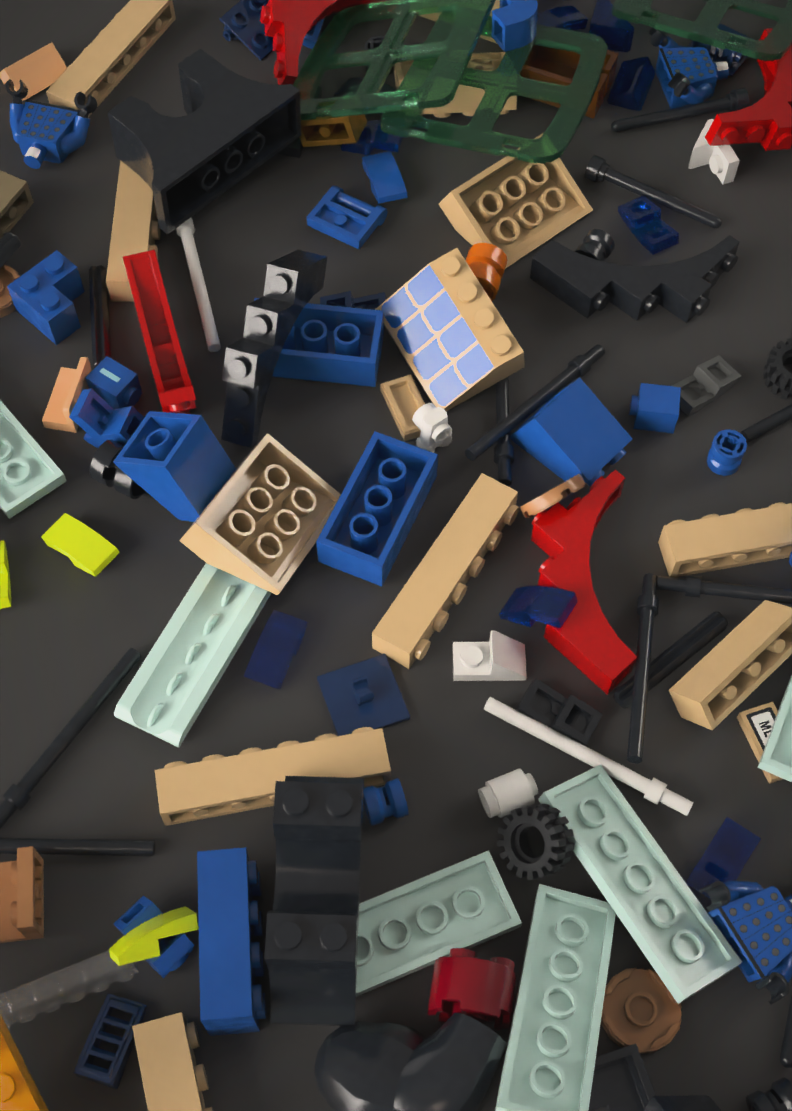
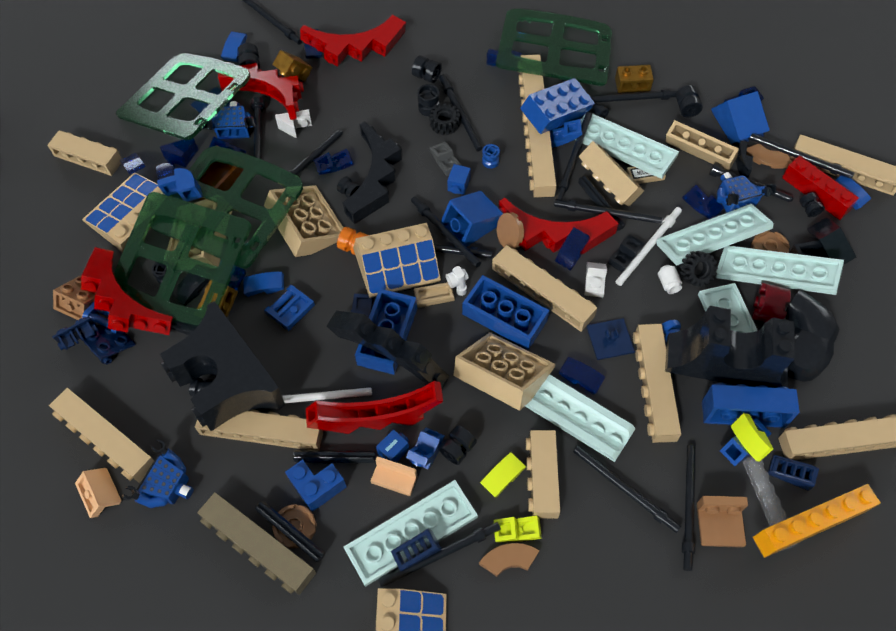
camera: 80 degrees left, 0 degrees up
(80, 601) = (544, 474): none -> tan brick
(176, 462) = (466, 408): blue slope -> none

